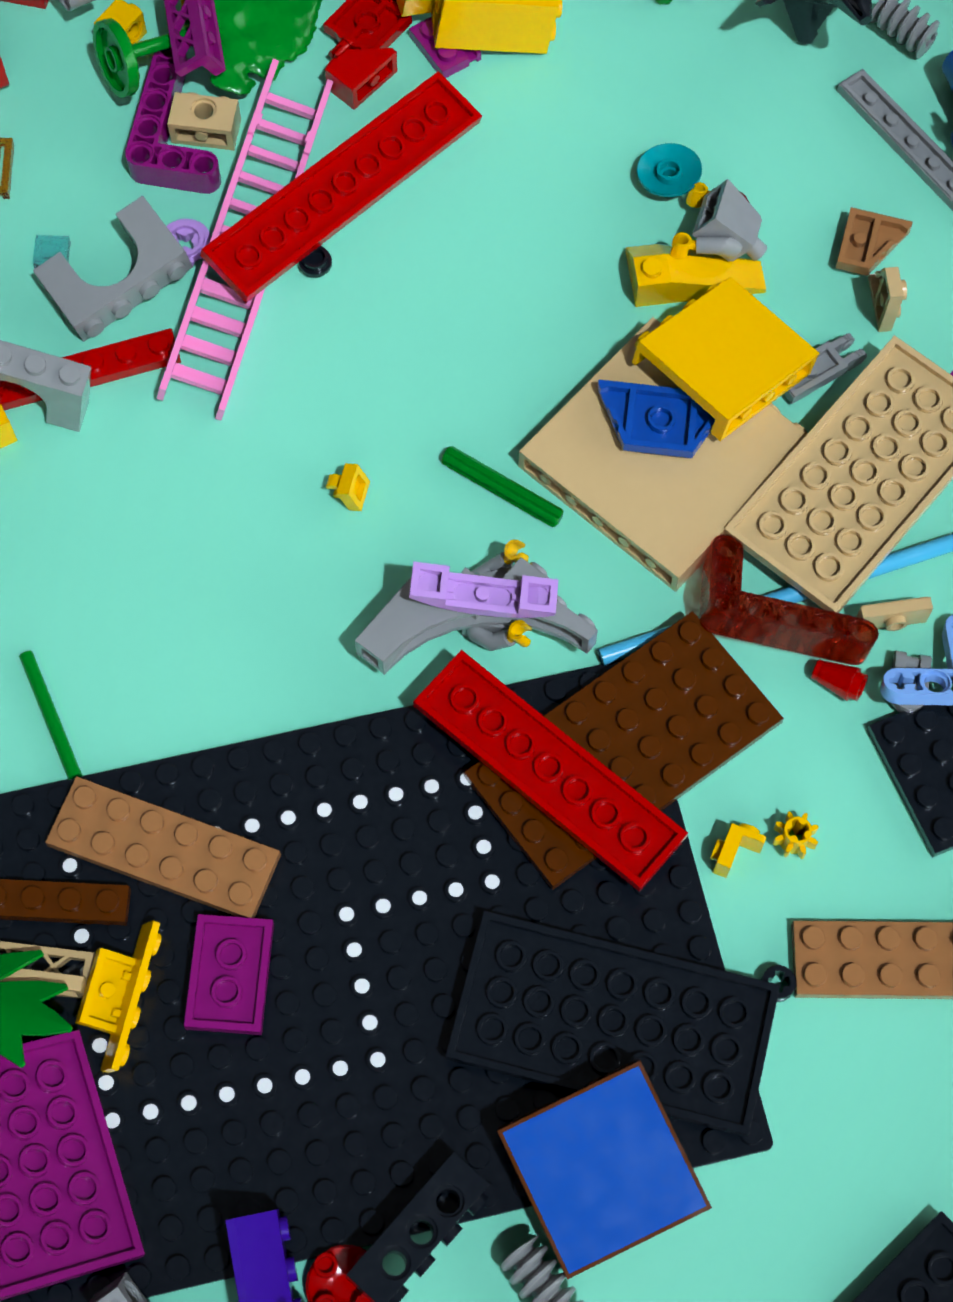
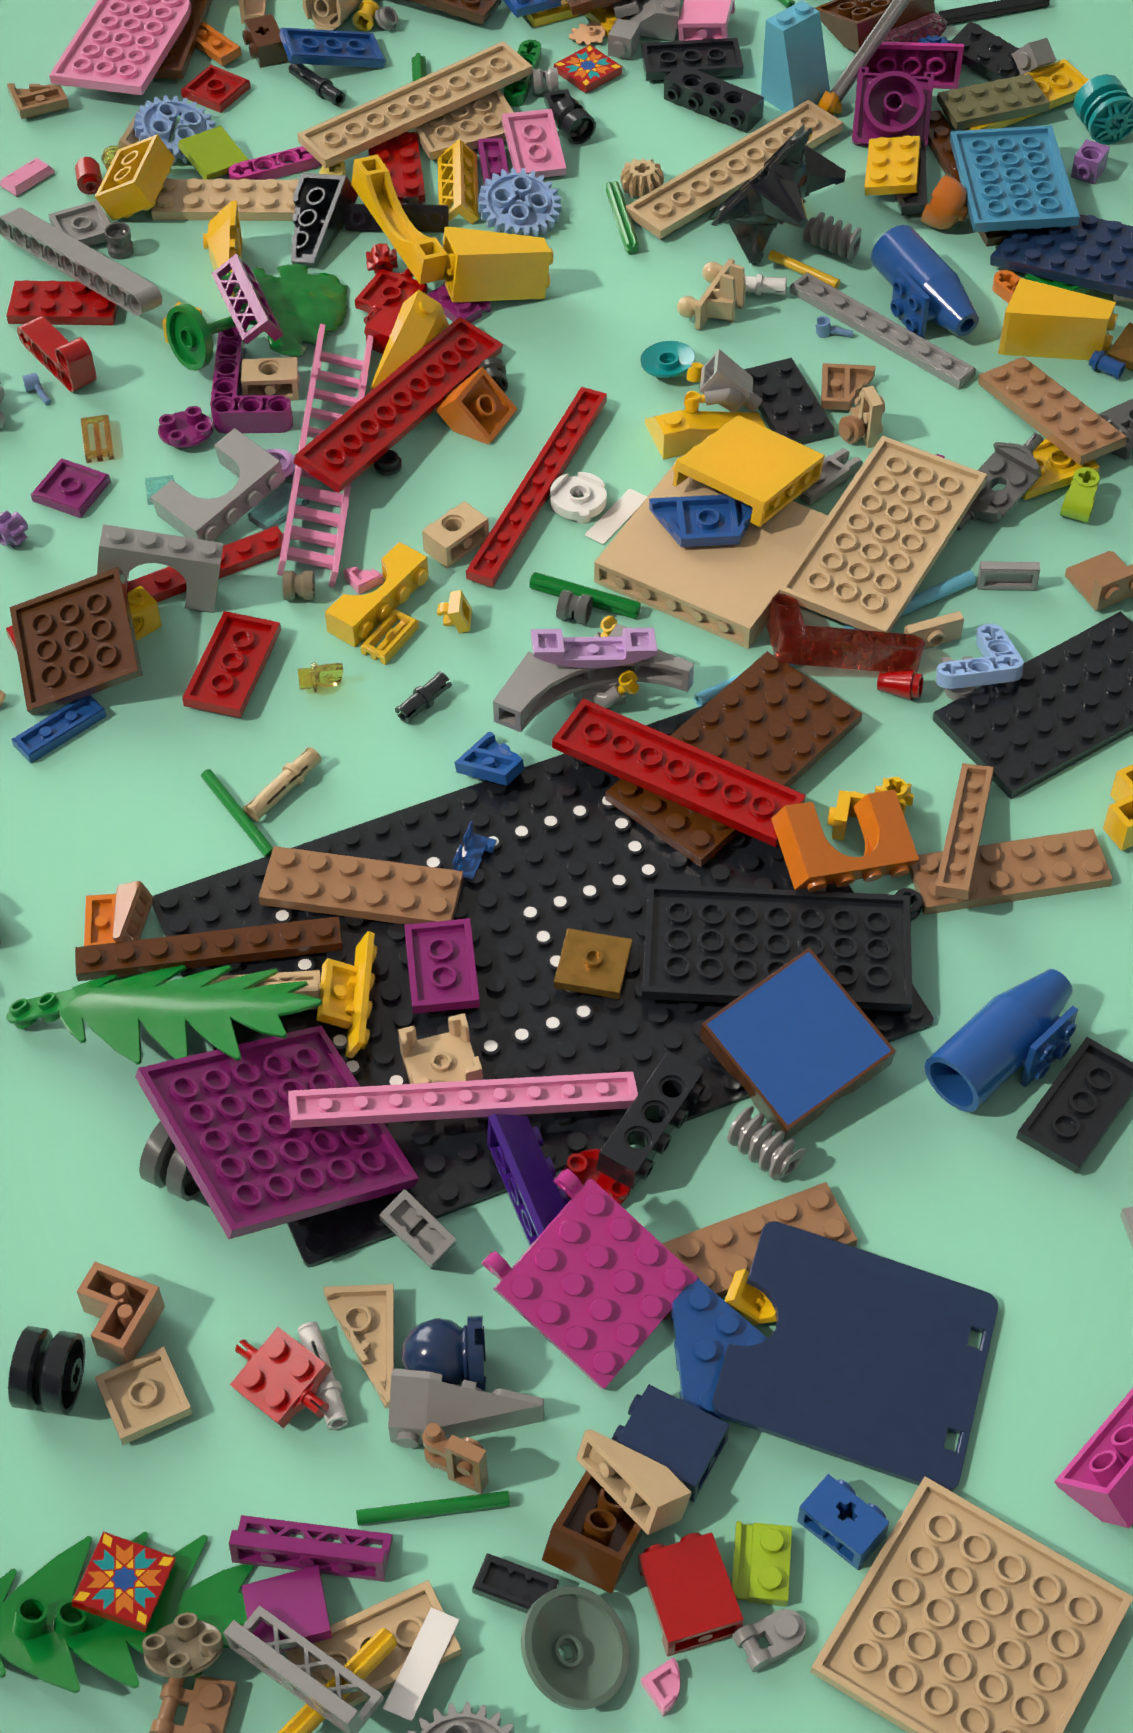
camera: 10 degrees left, 15 degrees down
(82, 512) = (231, 664): none -> red plate
(95, 172) = (185, 428): none -> magenta dish
(113, 681) = (291, 775): none -> tan pin
(167, 545) = (320, 675): none -> clear yellow piece
(171, 304) = (274, 509): none -> clear light blue tile
(179, 417) = (300, 585): none -> dark tan wheel
(201, 1106) = (442, 1056): none -> tan panel
(209, 1171) = (461, 1099): none -> bright pink plate
(234, 472) = (356, 616): none -> yellow arch
(255, 417) = (363, 579): none -> bright pink tile
(277, 512) = (394, 638): none -> yellow tile
(287, 597) = (423, 697): none -> black pin
(296, 831) = (475, 850): none -> blue piece
(344, 703) = (490, 761): none -> blue wing
(363, 393) = (455, 534): none -> tan brick
(381, 83) = (416, 325): none -> yellow wedge
(400, 1001) = (593, 963): none -> pearl gold plate
(433, 203) = (477, 408): none -> orange slope
(460, 166) = (497, 370): none -> pearl dark grey wheel
(478, 324) = (535, 487): none -> red plate
(485, 504) = (574, 607): none -> dark grey wheel
(520, 364) = (583, 508): none -> white plate
(563, 378) = (616, 516): none -> white sticker
(752, 90) = (720, 298): none -> tan piece
(768, 913) = (816, 863): none -> orange arch
(798, 254) = (789, 402): none -> black plate
(802, 78) = (765, 284): none -> white pin
(843, 1200) = (1005, 1034): none -> blue piece
(860, 62) = (802, 268): none -> yellow bar
(863, 306) = (851, 429): none -> medium nougat plate
(864, 907) = (964, 832): none -> medium nougat plate
(867, 154) = (824, 328): none -> medium blue hand

